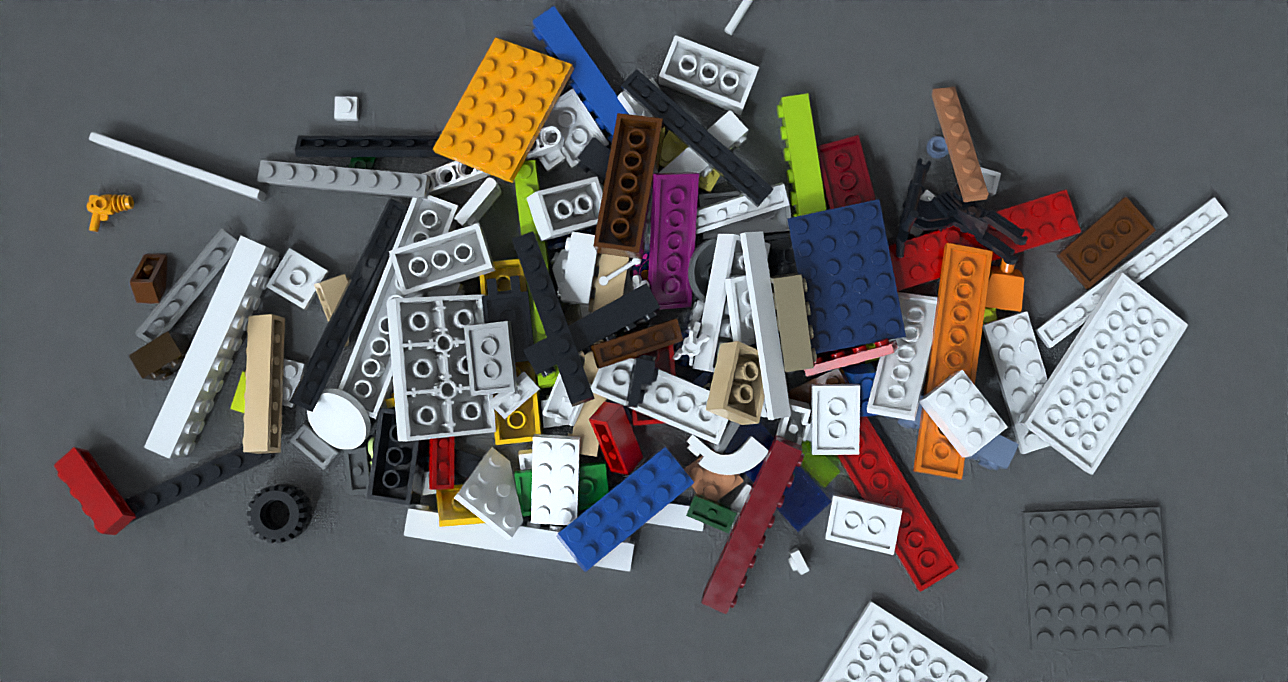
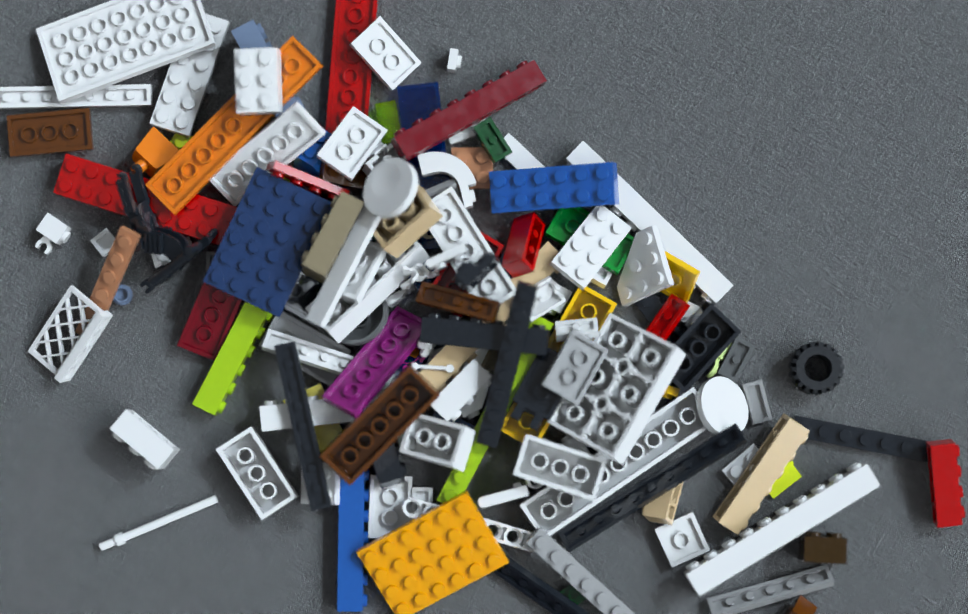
camera: 140 degrees left, 0 degrees up
(669, 384) = (455, 254): none -> white plate
(771, 401) = (390, 188): none -> white piece
(827, 33) = (144, 440): none -> white brick
(941, 91) = (84, 342): none -> white fence
(1038, 158) = (52, 230): none -> white brick

